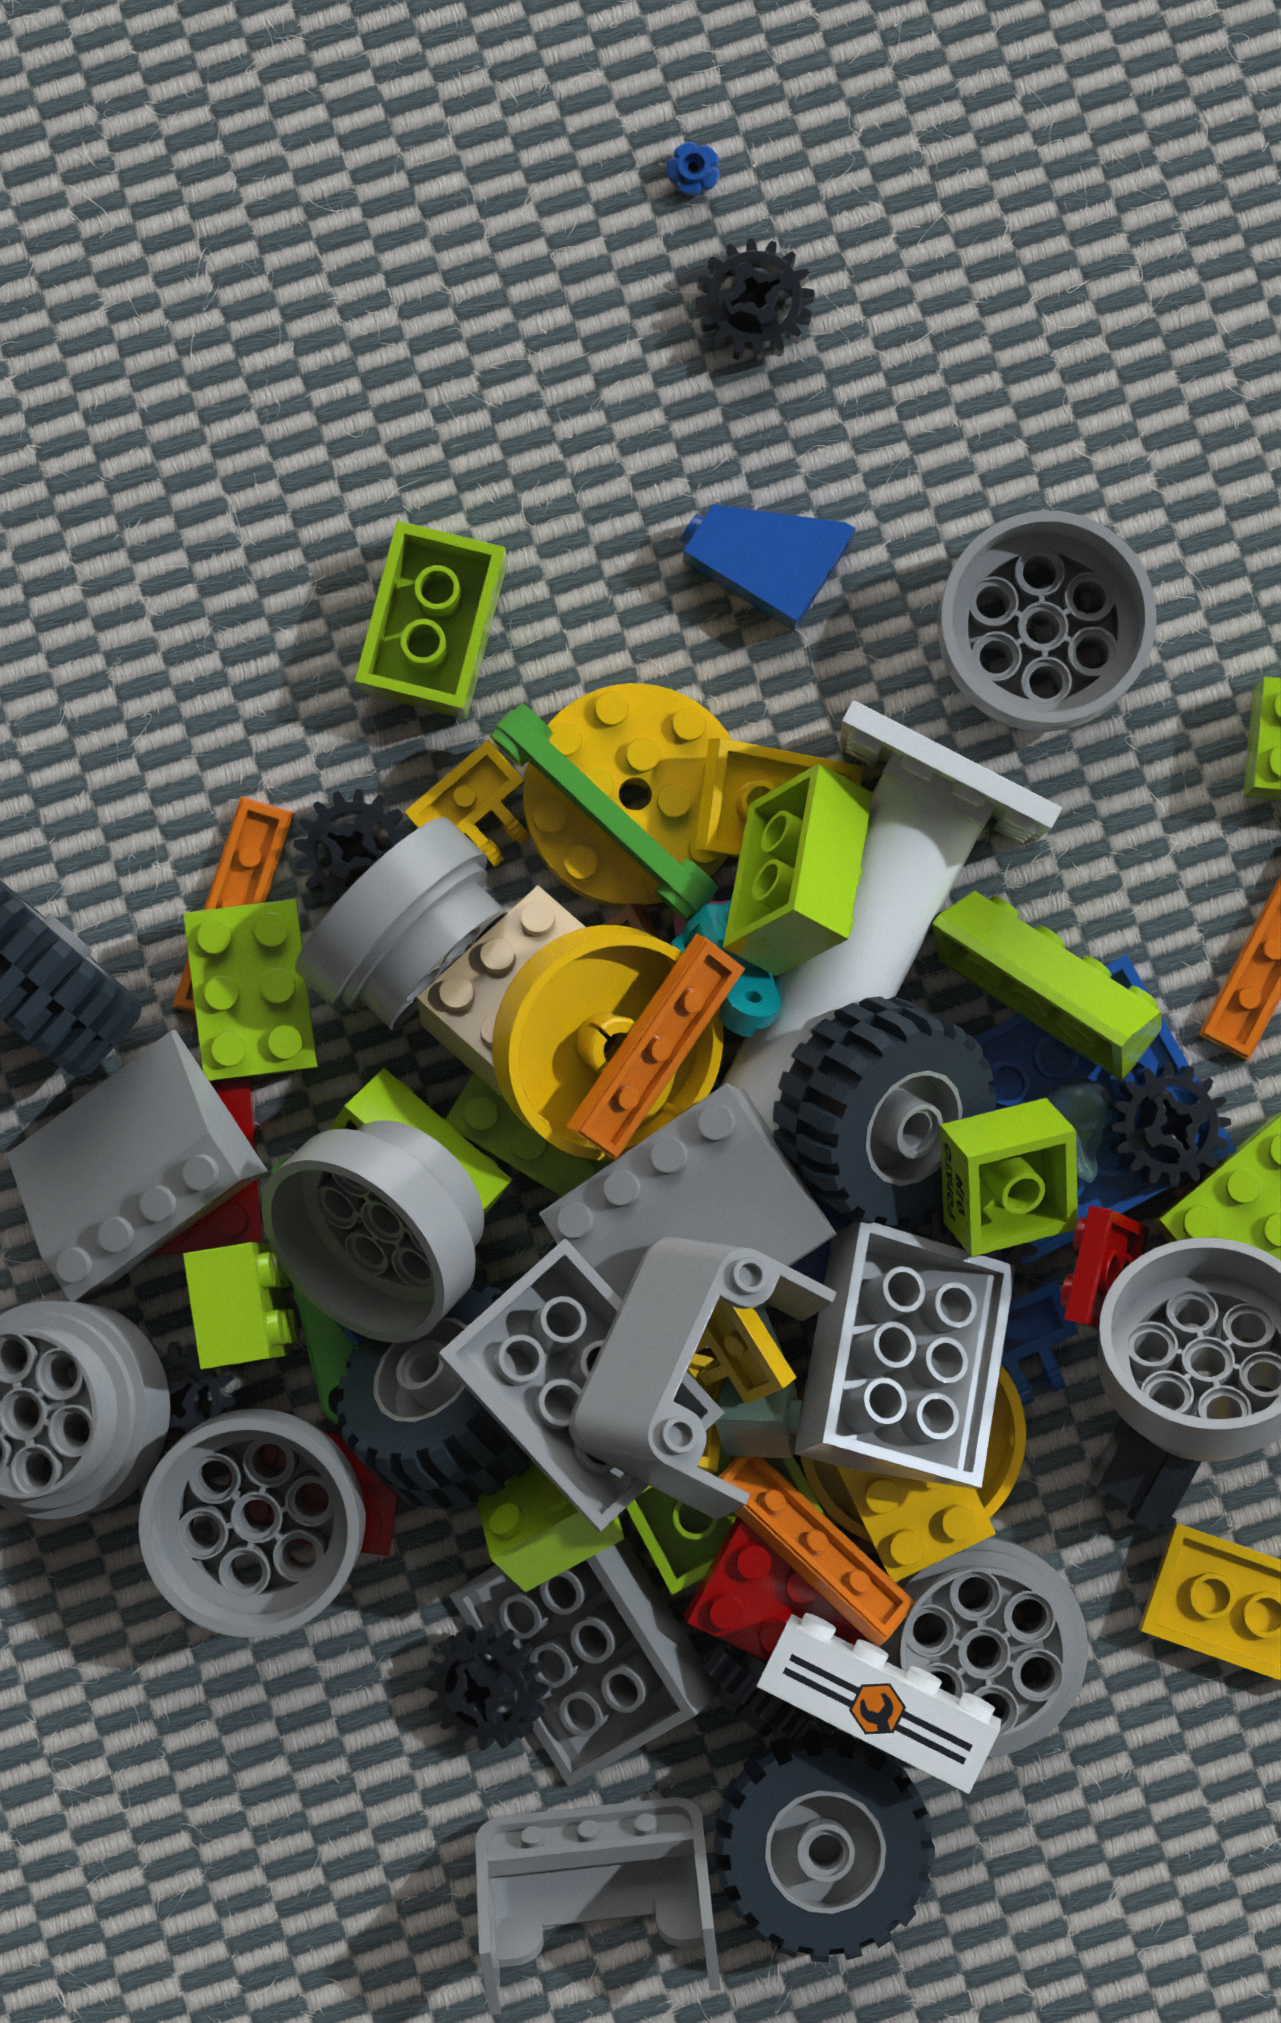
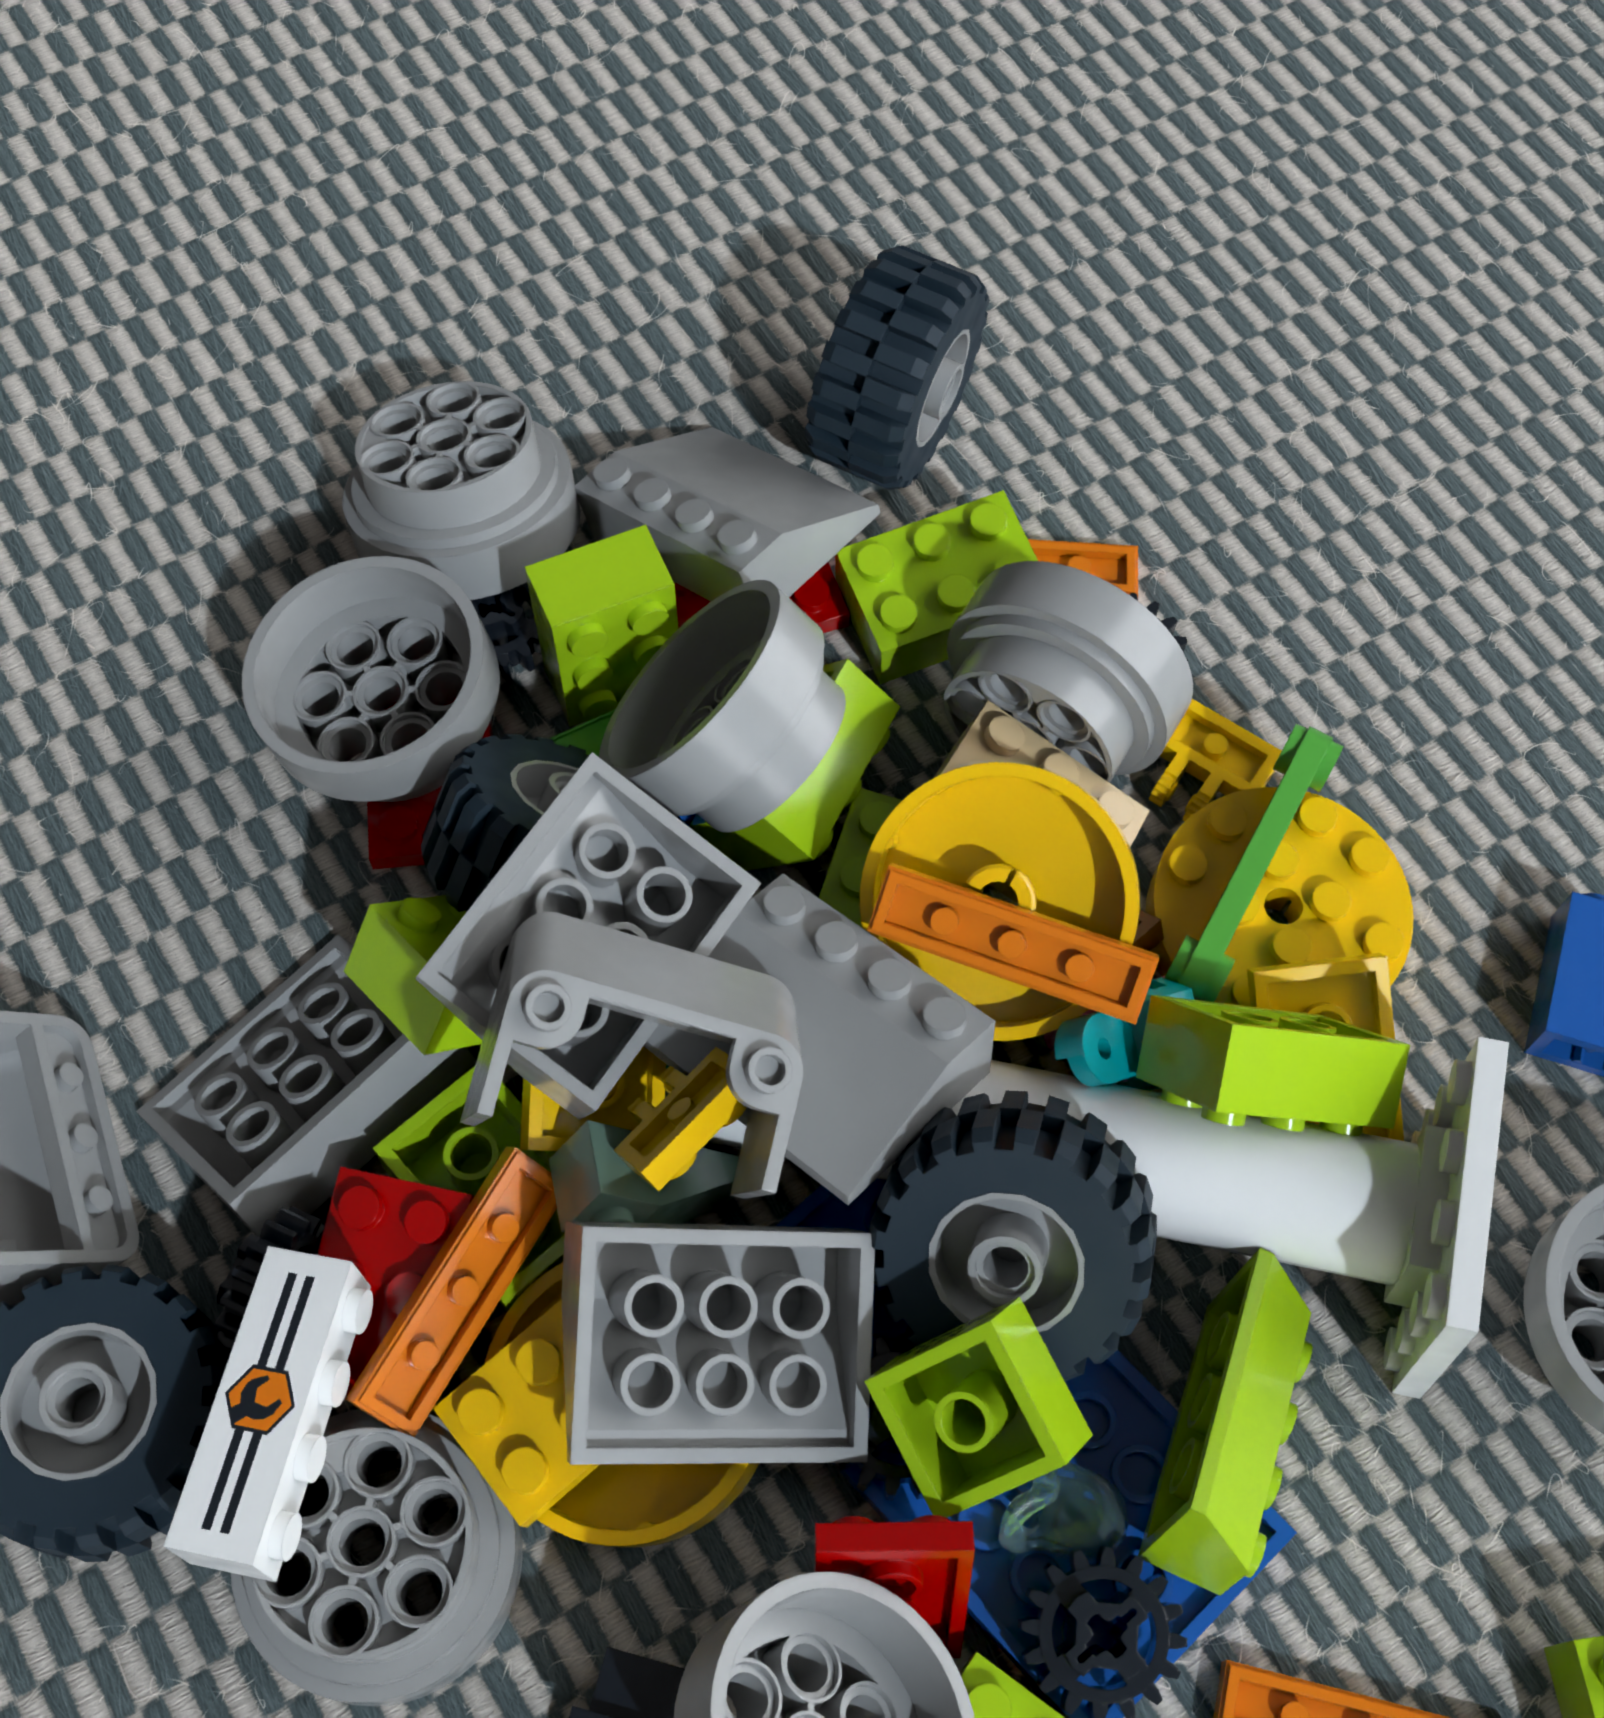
camera: 70 degrees right, 20 degrees down
(431, 619) = (1392, 665): lime brick -> none
(482, 1709) = (236, 986): black gear -> none
(1032, 1327) = (783, 1508): blue hinge -> none

